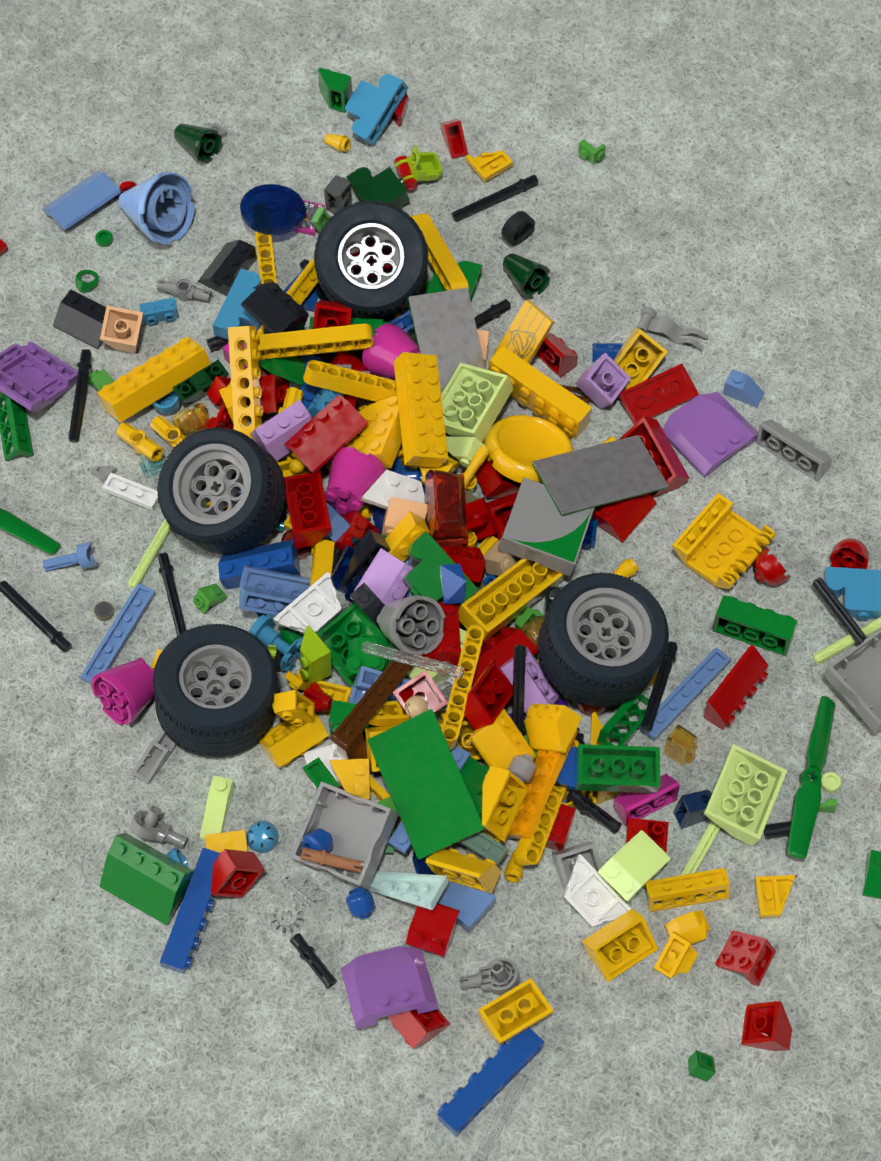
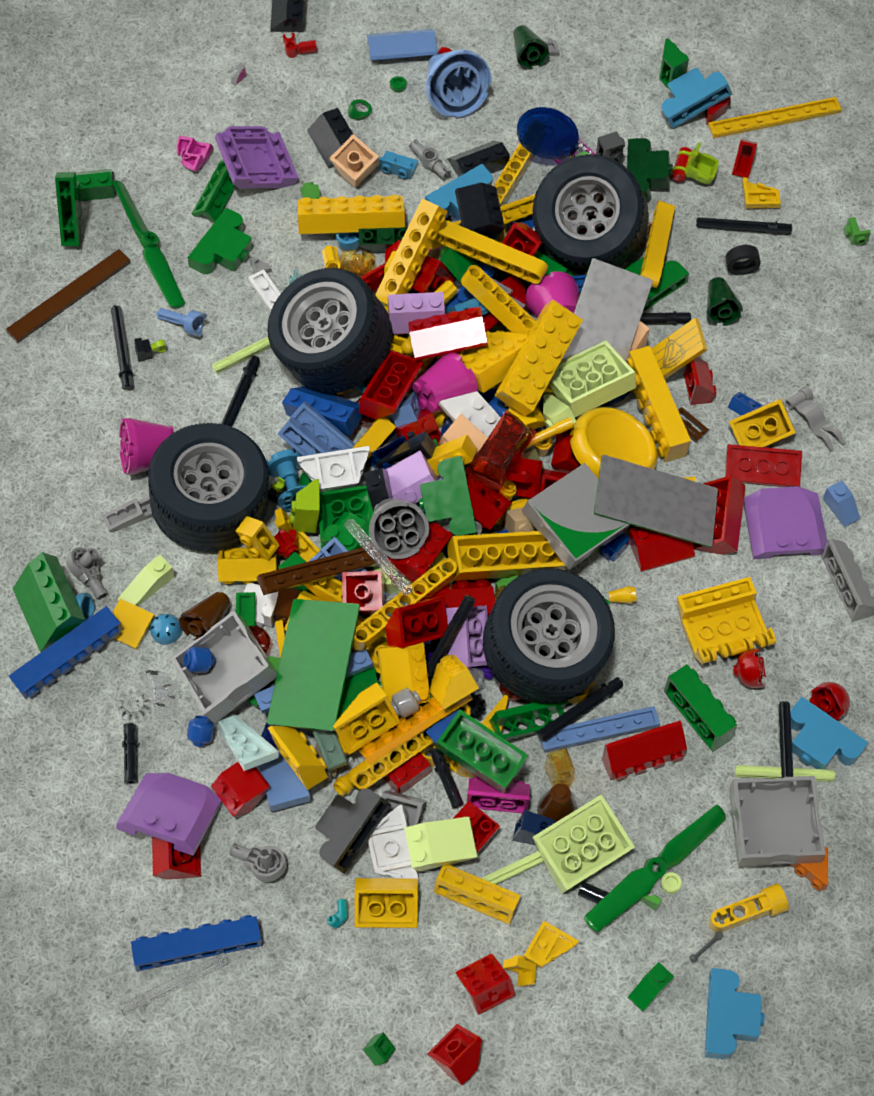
camera: 30 degrees right, 0 degrees up
(56, 471) = (222, 244): none -> green brick
(56, 605) = (144, 348): none -> black piece
(80, 393) = (304, 174): black axle -> none
(104, 611) = (178, 375): tile -> none
(119, 632) = (178, 397): medium blue plate -> none
(140, 442) = (302, 255): yellow piece -> none
(208, 596) = (266, 412): bright green bracket -> none
(235, 873) = (116, 642): red slope -> none
(291, 805) = (204, 615): none -> reddish brown cone
(324, 858) = (196, 678): nougat pin -> none
(338, 142) = (645, 110): yellow cone -> none
(353, 776) = (267, 624): yellow wing -> none
(415, 706) = (351, 594): tan piece -> none
(451, 89) = (774, 117): none -> yellow tile
(452, 583) = (455, 513): slope -> none
(514, 1011) = (255, 899): yellow slope -> none
(548, 901) = (350, 826): none -> black brick
(590, 981) = (340, 916): none -> teal arm
(603, 381) = (720, 426): lavender slope -> none
(676, 956) = (424, 943): yellow slope -> none
(690, 925) = (454, 926): yellow slope -> none
(698, 775) = (557, 802): none -> reddish brown cone
(770, 926) = (525, 969): none -> yellow bracket

